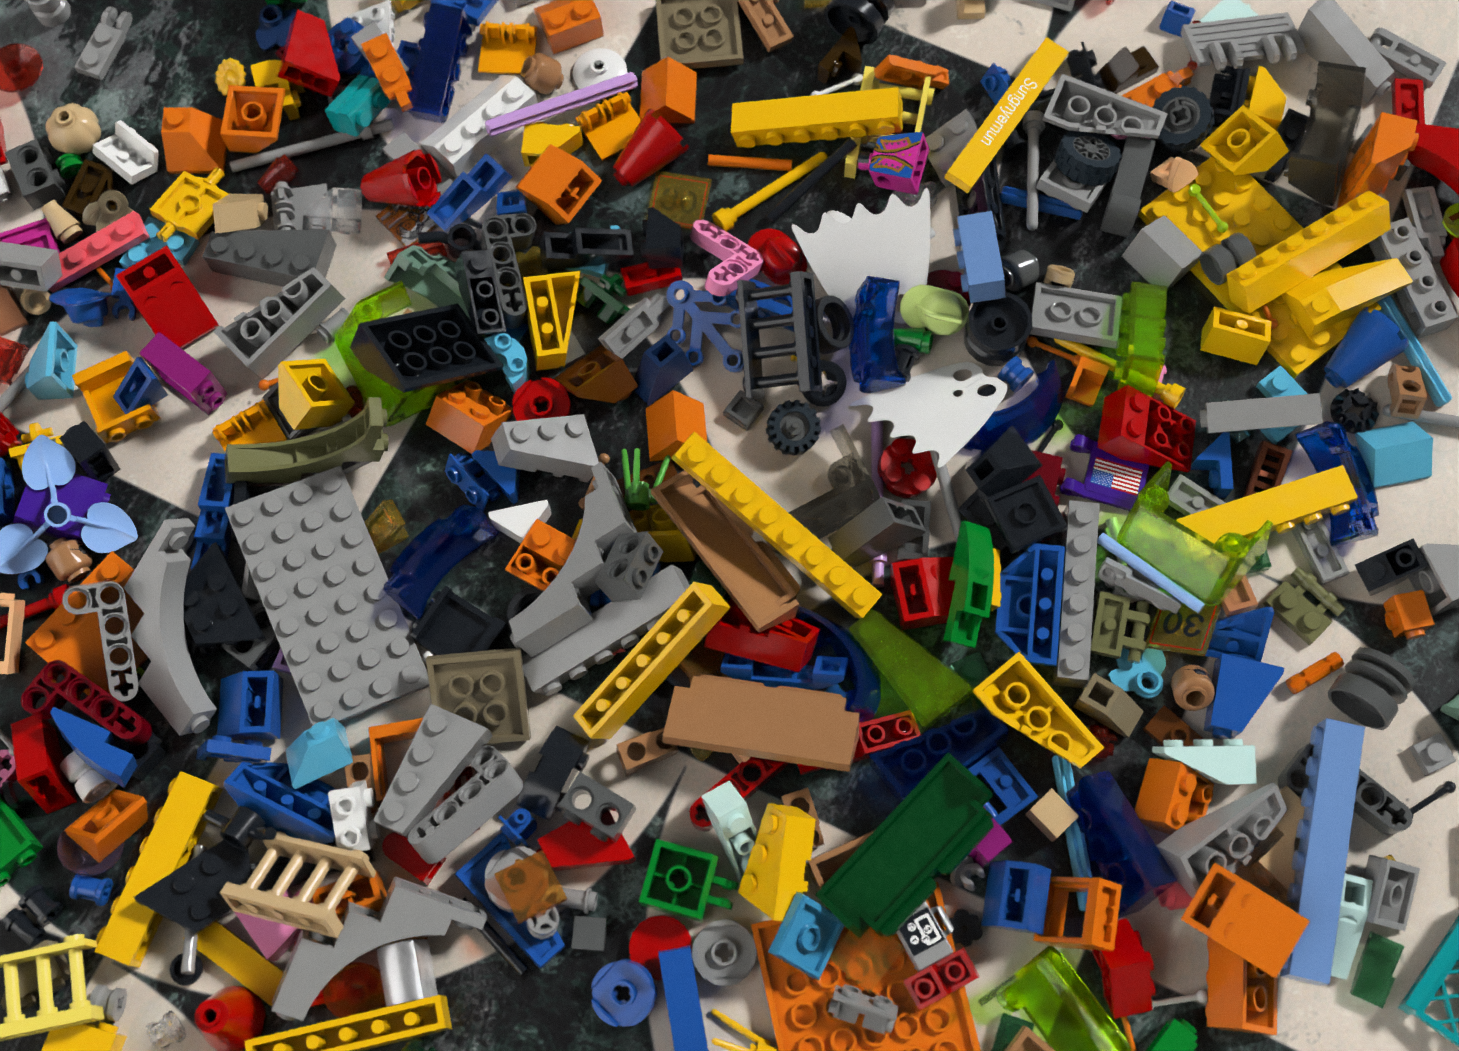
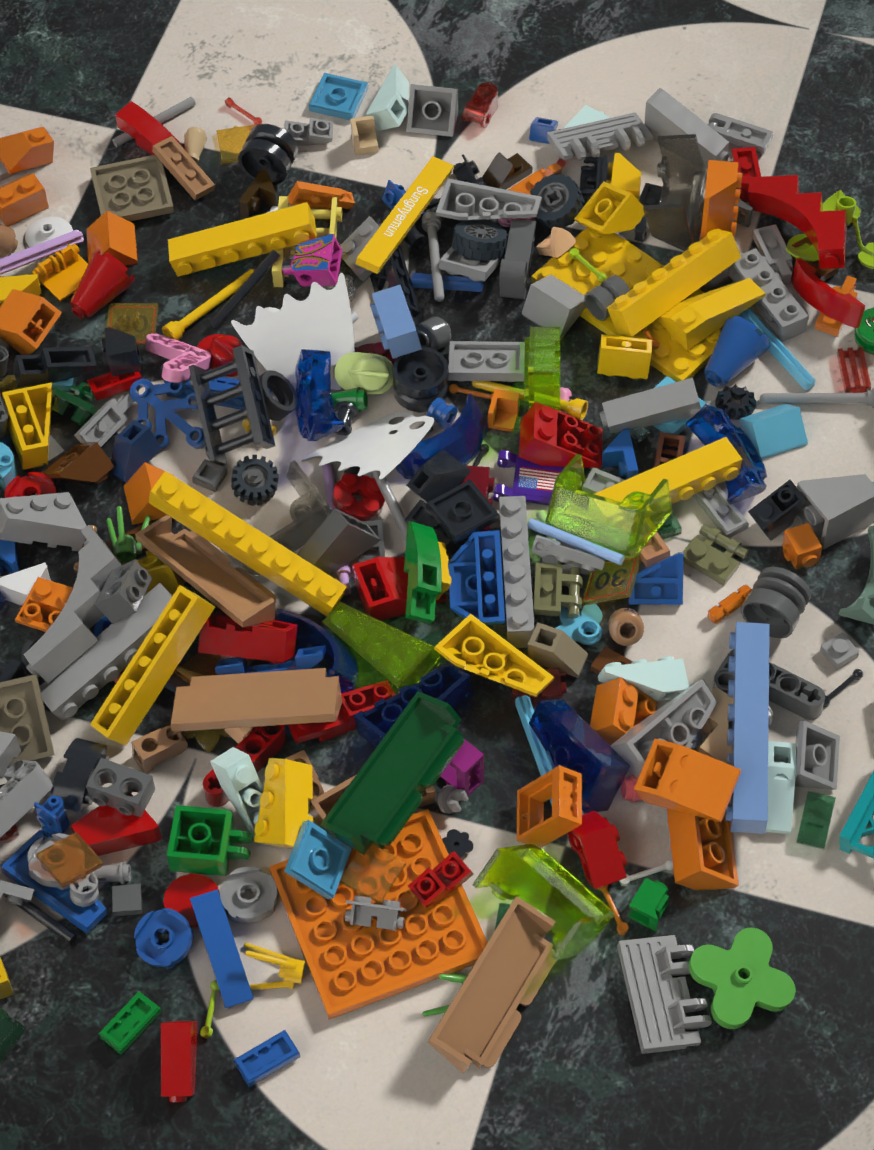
camera: 10 degrees left, 15 degrees down
(750, 162) = (189, 286): orange bar -> none
(833, 391) = (284, 450): black gear -> none
(924, 938) = (418, 845): piece -> none
(1005, 784) = (478, 726): blue plate -> none
(1016, 896) = (497, 805): blue slope -> none
(1052, 815) = (518, 742): tan panel -> none
(1059, 275) = (469, 332): tan tile -> none
(1239, 692) = (668, 624): blue slope -> none
(1406, 391) = (775, 380): medium nougat leg -> none

